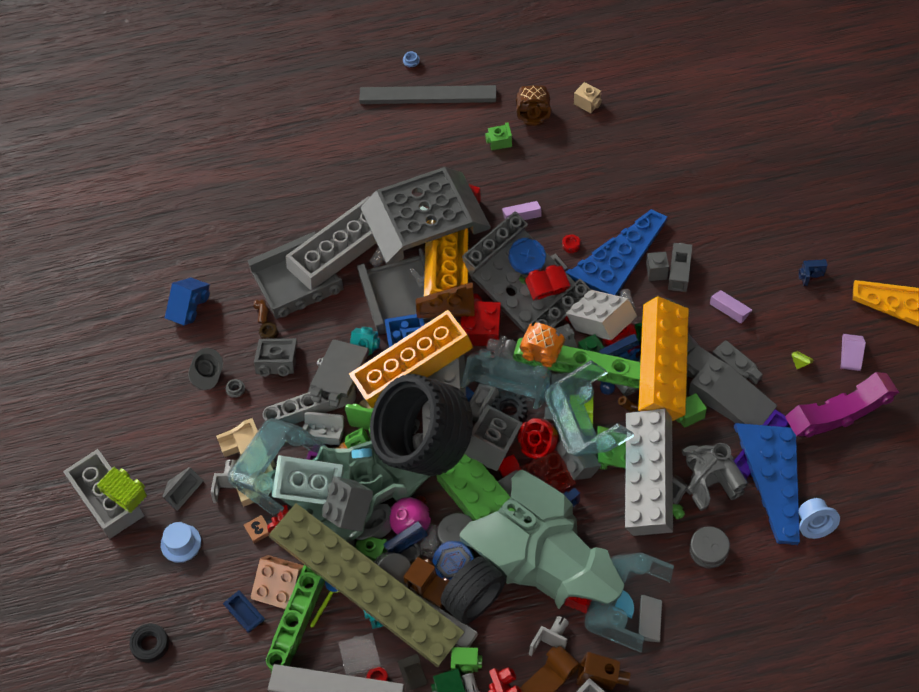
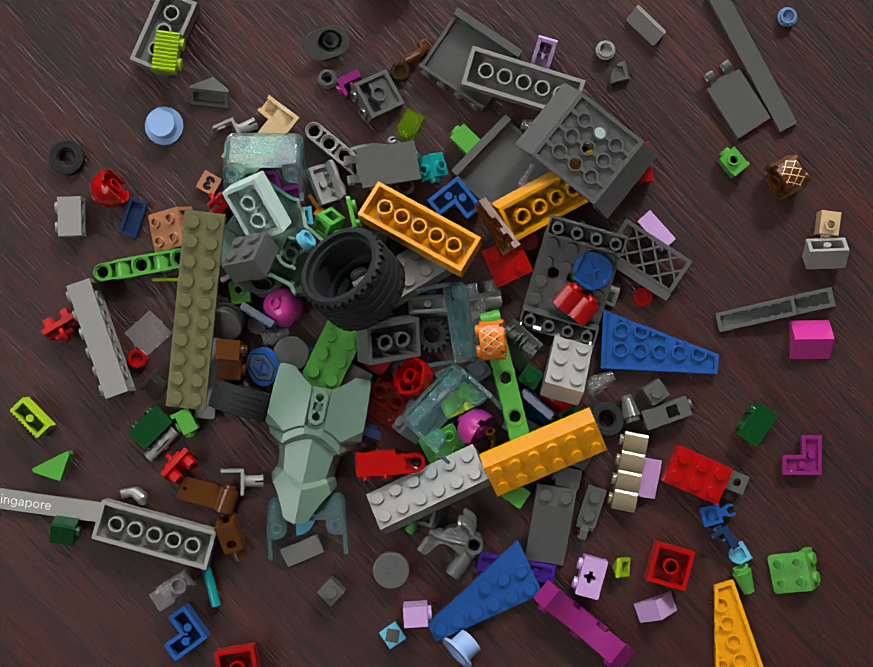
camera: 50 degrees right, 30 degrees up
(204, 617) = (107, 189): none -> red cylinder
(205, 666) = (71, 216): none -> light grey brick
(248, 373) = (347, 81): none -> magenta bracket
(316, 344) = (410, 124): none -> clear neon green bracket
(322, 216) = (544, 51): none -> lavender slope
(353, 181) = (605, 50): none -> light grey plate
(354, 146) = (646, 25): none -> light grey slope
(357, 308) = (463, 138): none -> bright green brick
(378, 180) = (619, 73): none -> dark grey tile
(451, 117) = (735, 100): none -> dark grey tile
(555, 234) = (641, 276): none -> dark grey fence
(604, 498) = (386, 463): none -> red brick
(608, 411) = (473, 426): none -> dark pink cylinder
(610, 106) = (825, 253): none -> light grey brick
(636, 159) = (775, 309): none -> dark grey slope
(664, 291) = (629, 409): none -> dark grey cone
(675, 146) = (810, 339): none -> dark pink slope
(703, 608) = (331, 590): none -> dark grey brick
(719, 316) = (628, 472): none -> dark tan brick
(725, 209) = (755, 424): none -> dark green brick
(745, 267) = (696, 474): none -> red brick
(763, 539) = (416, 614): none -> lavender brick
(768, 248) = (743, 479): none -> dark grey piece
(775, 578) = (392, 635): none -> tile
(776, 189) = (809, 460): none -> magenta plate
(788, 271) = (713, 514): none -> blue plate
(798, 385) = (593, 586): none -> lavender brick
(817, 319) = (669, 565): none -> red brick
(834, 270) = (739, 555): none -> medium azure tile
(854, 272) = (743, 577): none -> bright green cone
(868, 236) = (794, 571): none -> bright green bracket

